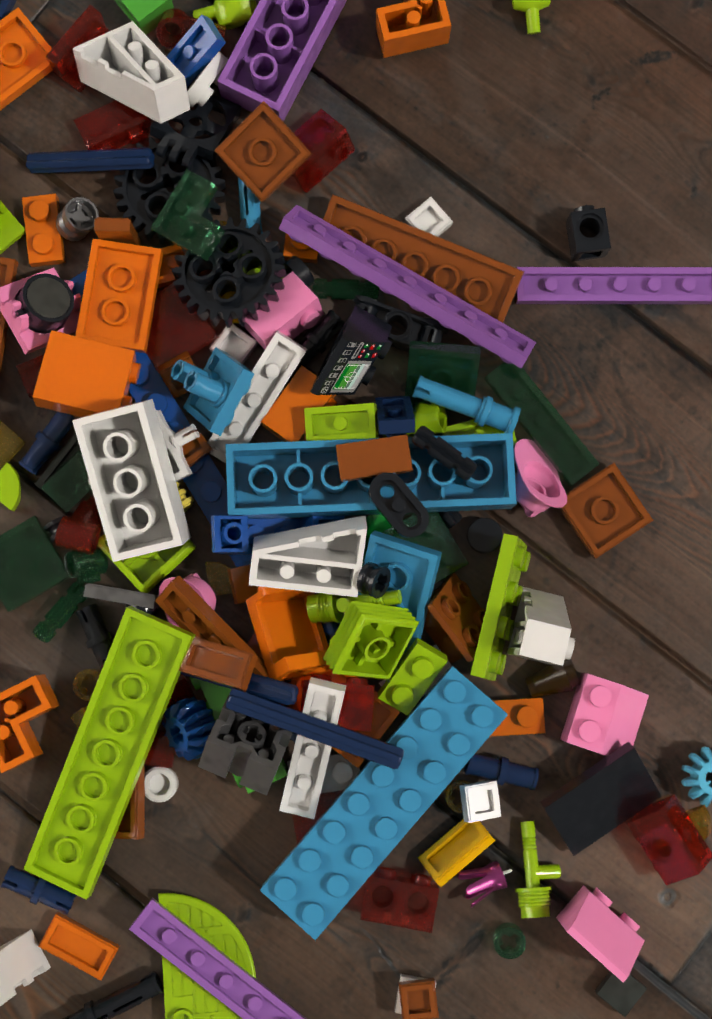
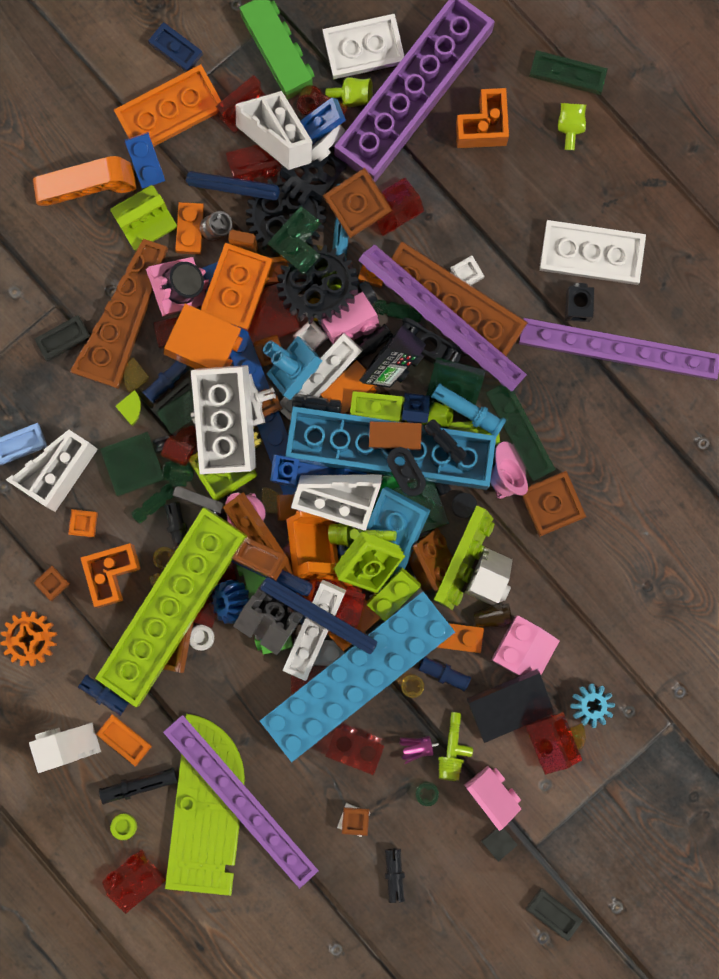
camera: 10 degrees right, 0 degrees up
(259, 434) = (317, 403): none -> black axle
(373, 580) = (379, 520): black bush -> none
(455, 850) = (402, 722): yellow tile -> none
(480, 801) = (425, 691): white tile -> none
(592, 163) = (592, 252): none -> white plate

